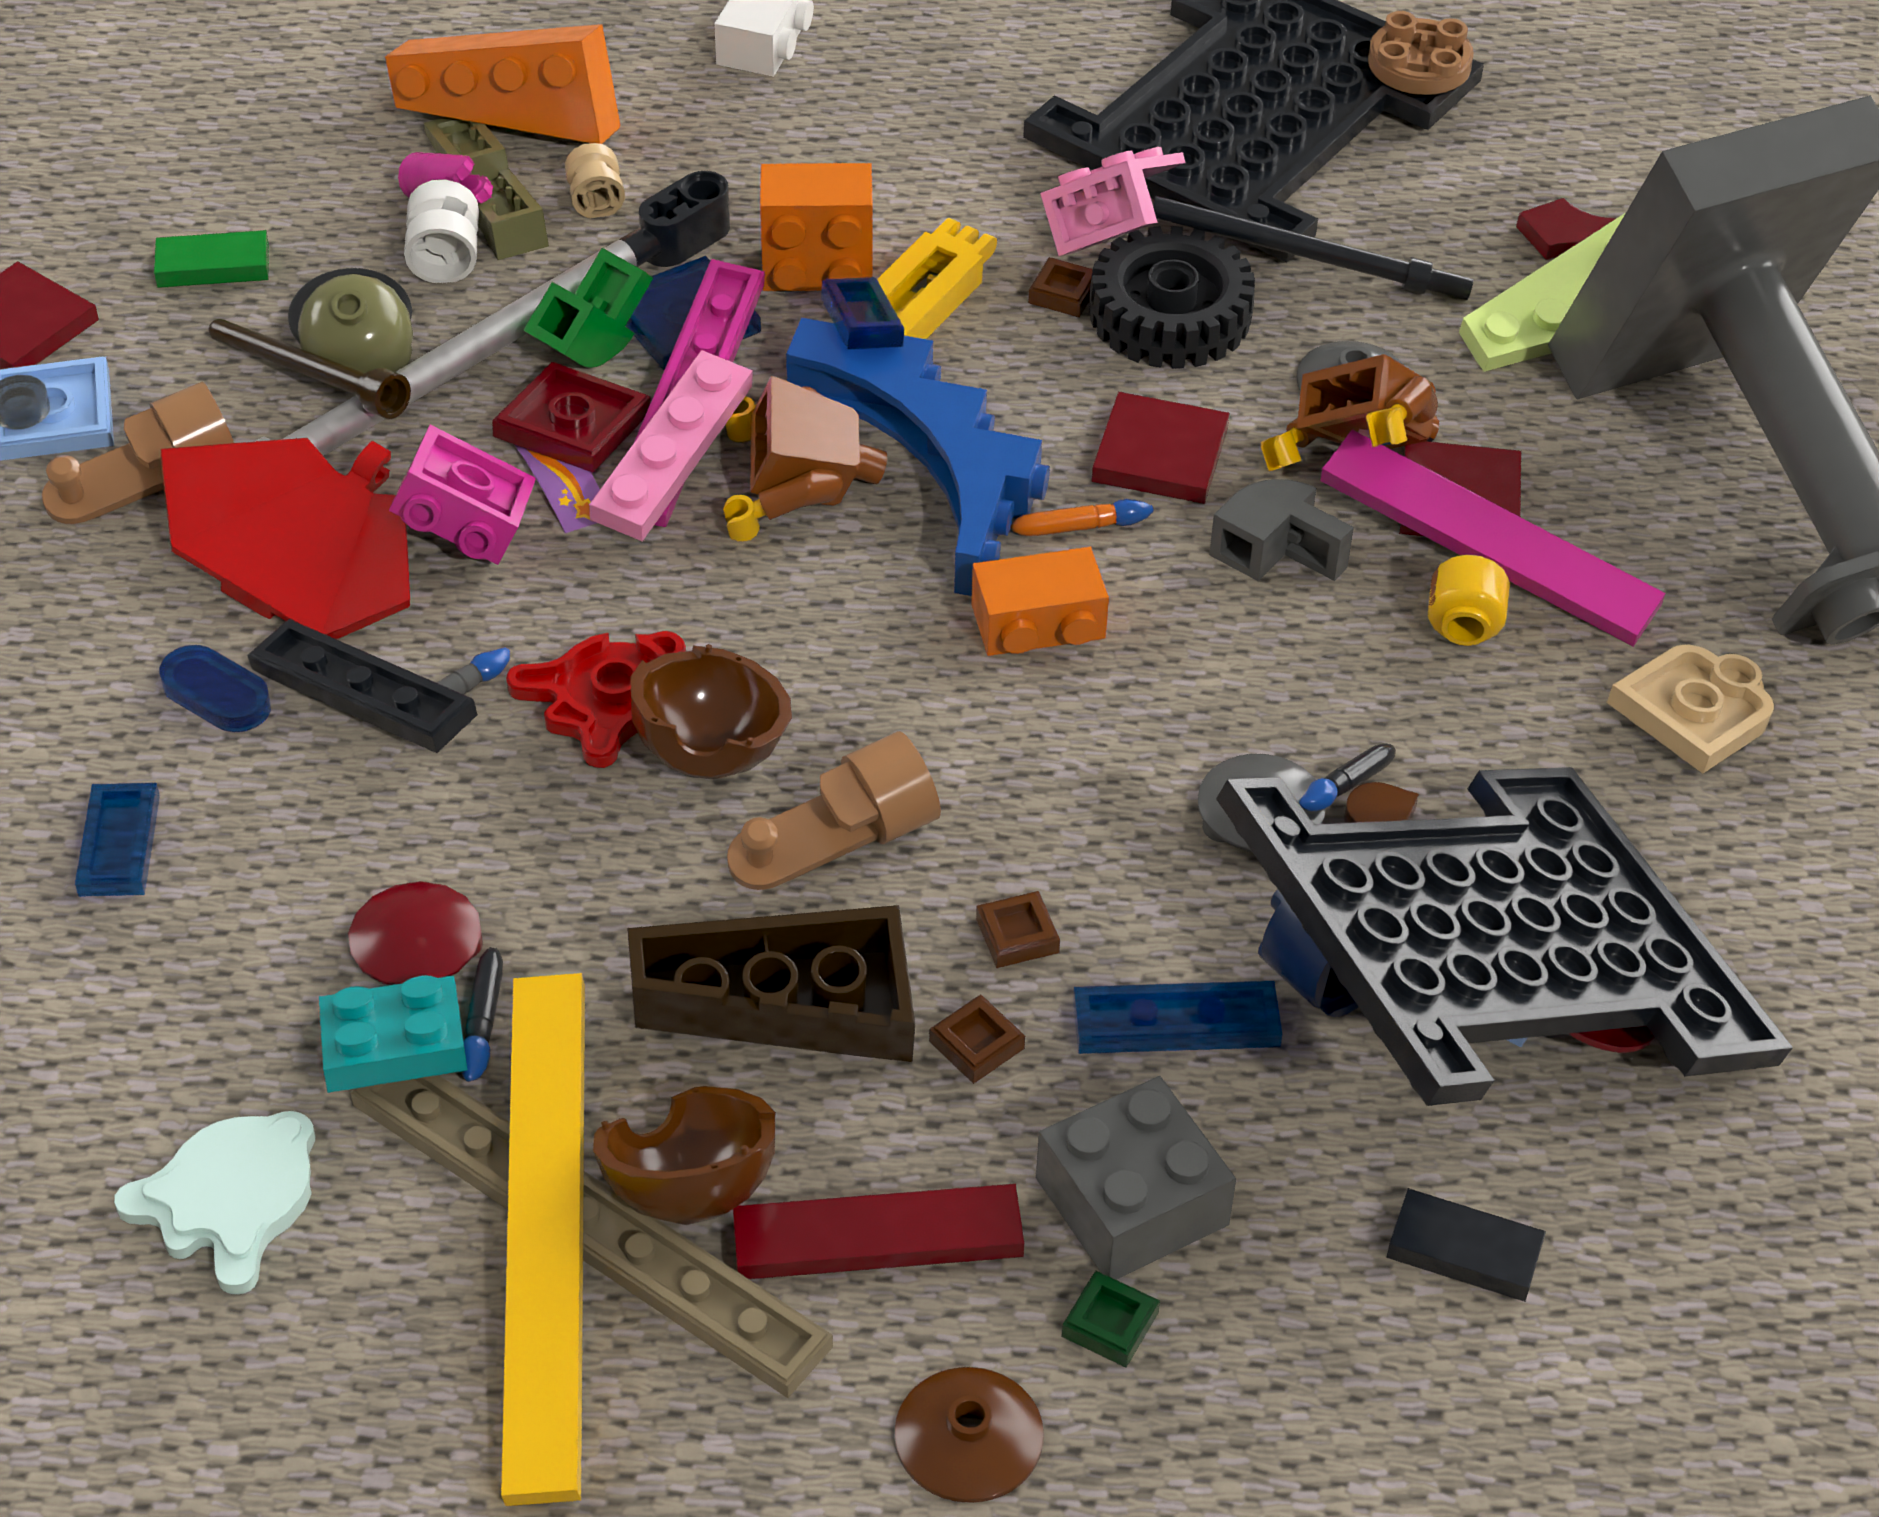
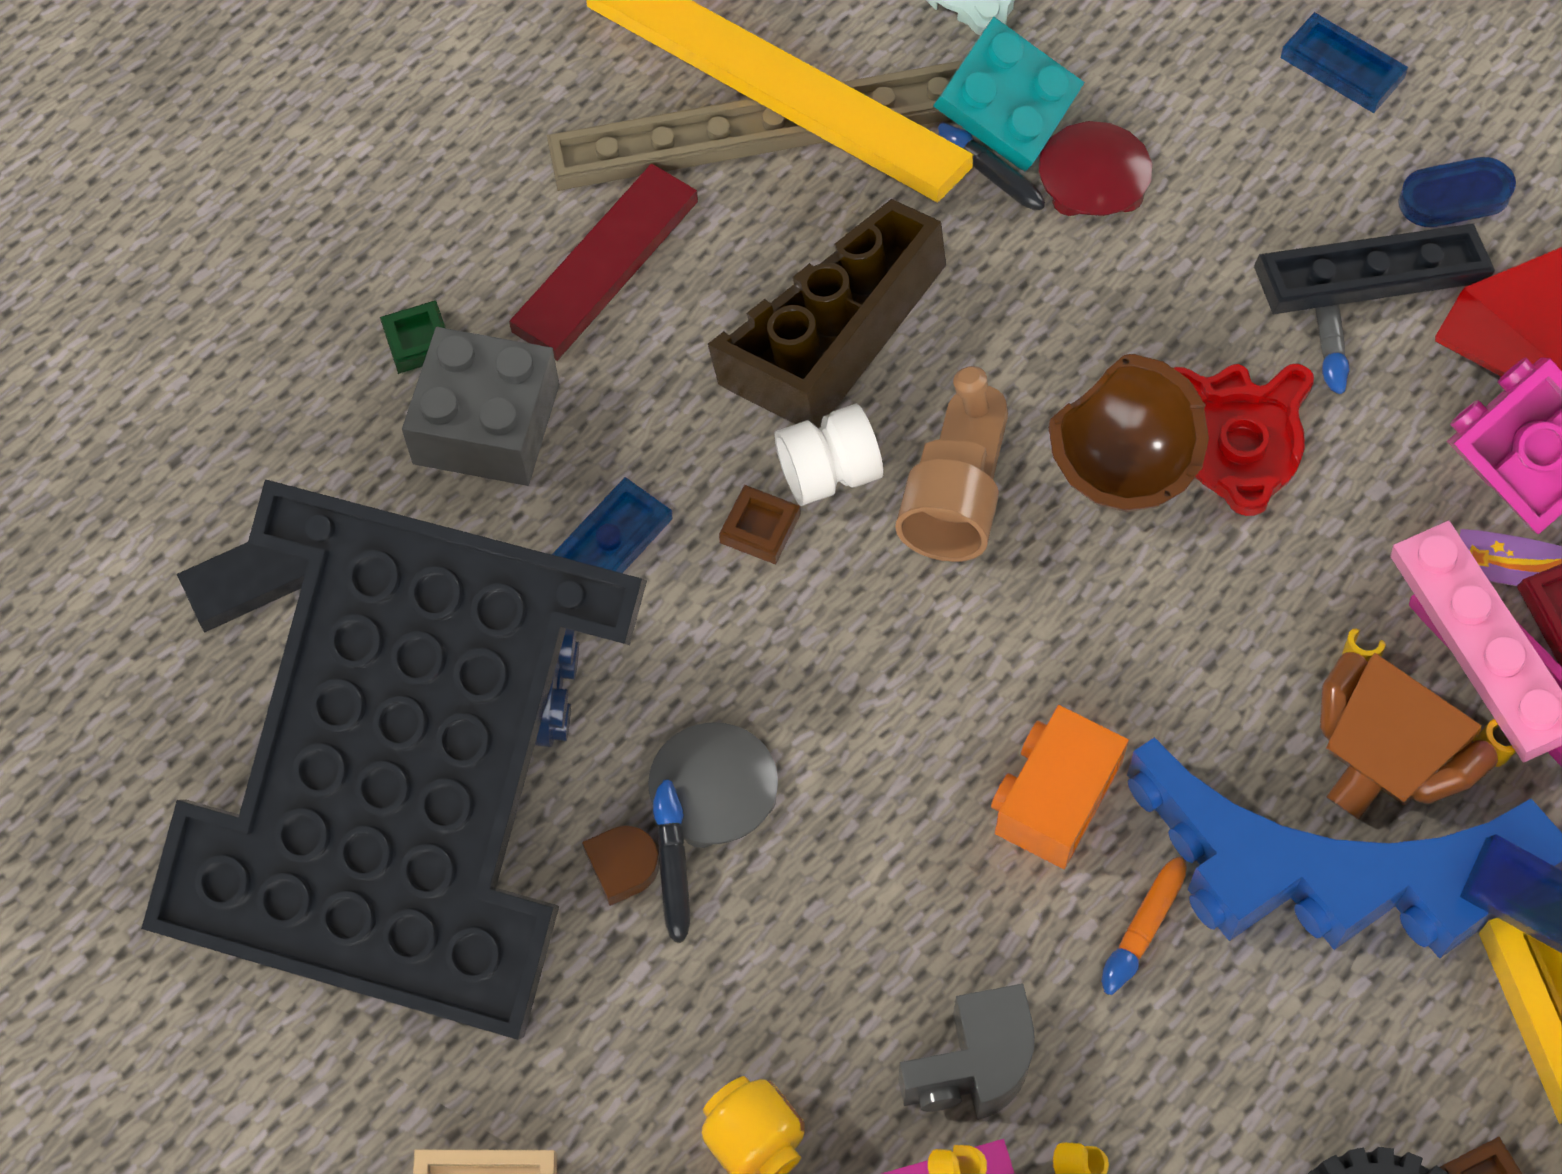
camera: 135 degrees right, 15 degrees up
(697, 1161) = (740, 158): reddish brown cylinder -> none
(931, 904) = (836, 452): none -> white wheel
(963, 1460) = (431, 230): reddish brown dish -> none
(977, 1038) = (693, 427): reddish brown tile -> none
(1160, 447) = (1181, 1072): dark red tile -> none

